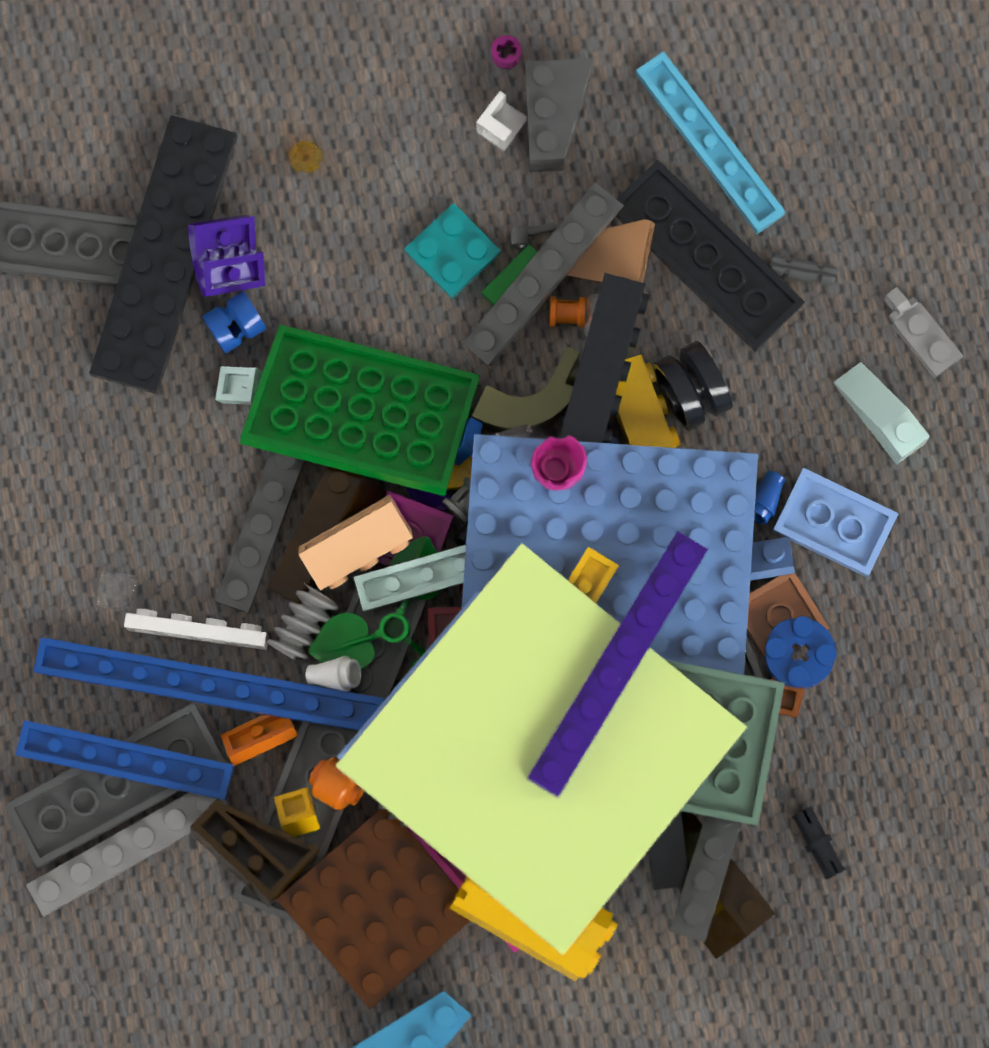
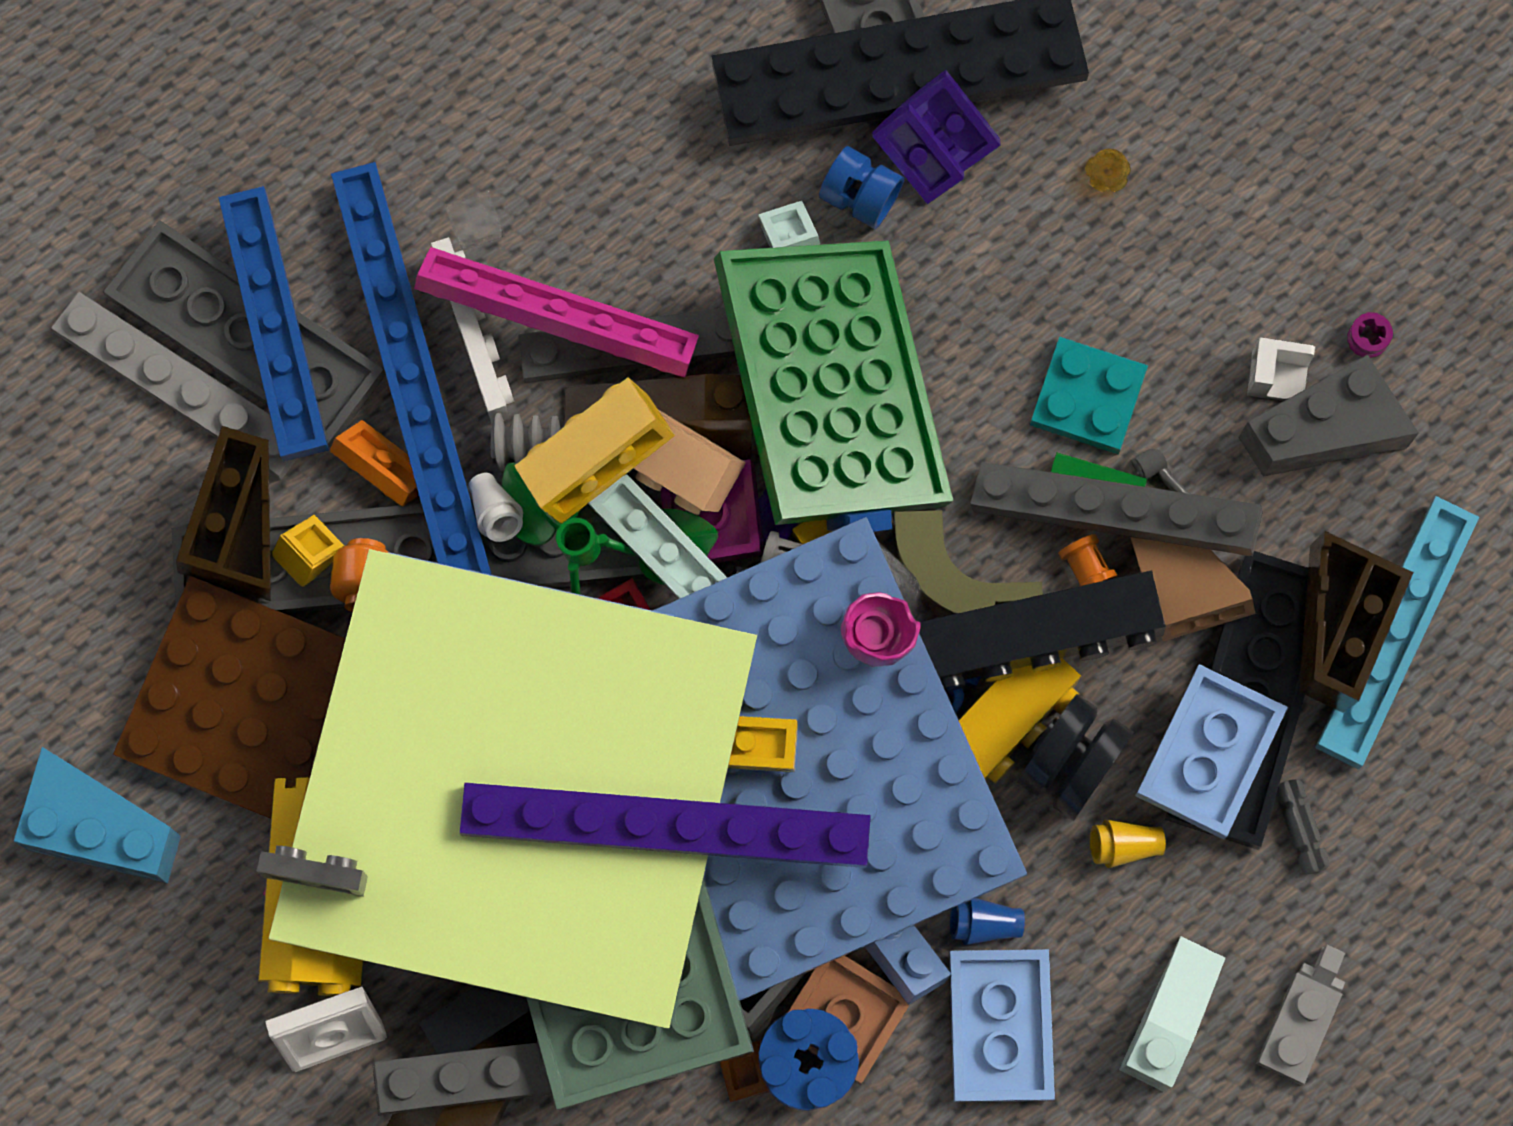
camera: 60 degrees right, 5 degrees down
(220, 566) = (556, 312): none -> dark pink plate
(336, 587) = (594, 450): none -> yellow brick
(527, 915) = (291, 866): none -> flat silver plate
(629, 950) = (326, 1029): none -> white tile
(692, 169) = (1347, 618): none -> dark brown wedge
(731, 299) = (1211, 751): none -> light blue plate
(758, 385) = (1122, 843): none -> yellow cone

